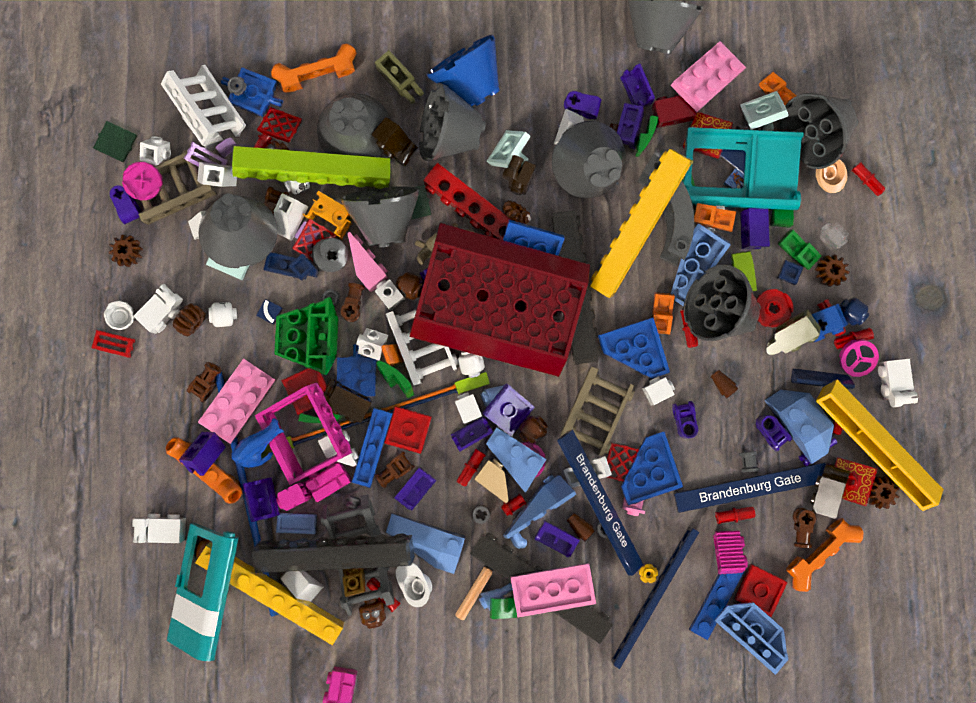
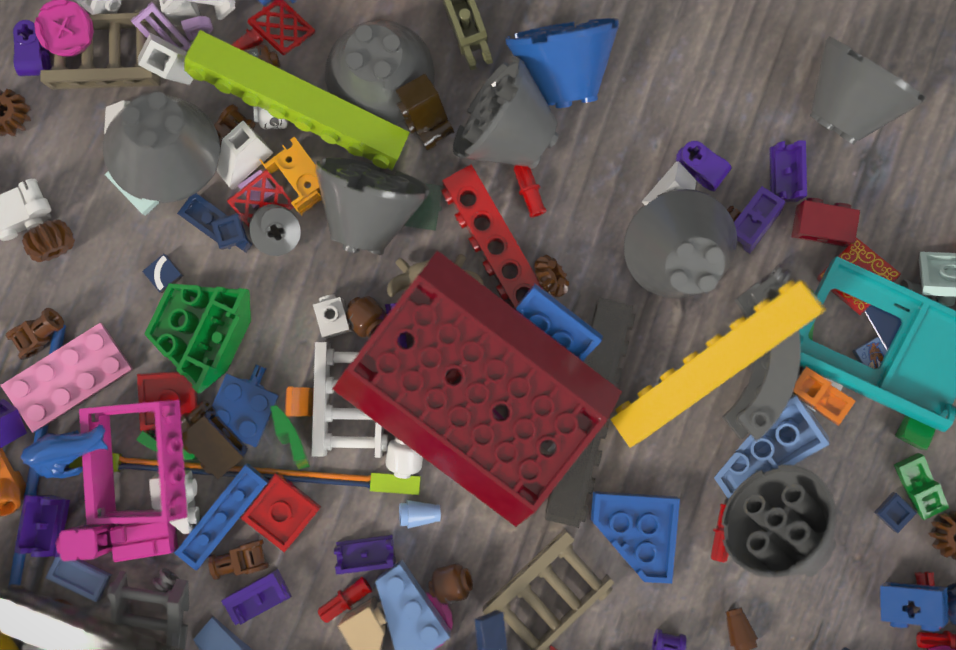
camera: 25 degrees right, 0 degrees up
(222, 314) = (96, 251): white head -> none
(331, 293) = (254, 281): dark grey plate -> none
(352, 302) = (278, 308): reddish brown connector -> none
(365, 266) = (315, 266): bright pink slope -> none
(371, 343) = (280, 373): white brick -> none
(467, 407) = (372, 519): white brick -> none
(480, 165) = (529, 191): none -> red axle
(508, 409) = (427, 543): tile -> none
(510, 144) = (577, 186): light aqua tile -> none
(518, 176) = (574, 229): dark brown hinge -> none
(644, 139) = (768, 246): green slope -> none
(658, 390) = (645, 602): white brick -> none
(662, 311) = (696, 493): orange slope -> none
(708, 76) = (892, 196): bright pink plate -> none
(744, 262) = (836, 475): lime slope -> none
(754, 228) = (871, 432): dark purple hinge -> none
(783, 313) = (864, 564): red plate -> none
(794, 333) = (867, 605): hinge -> none

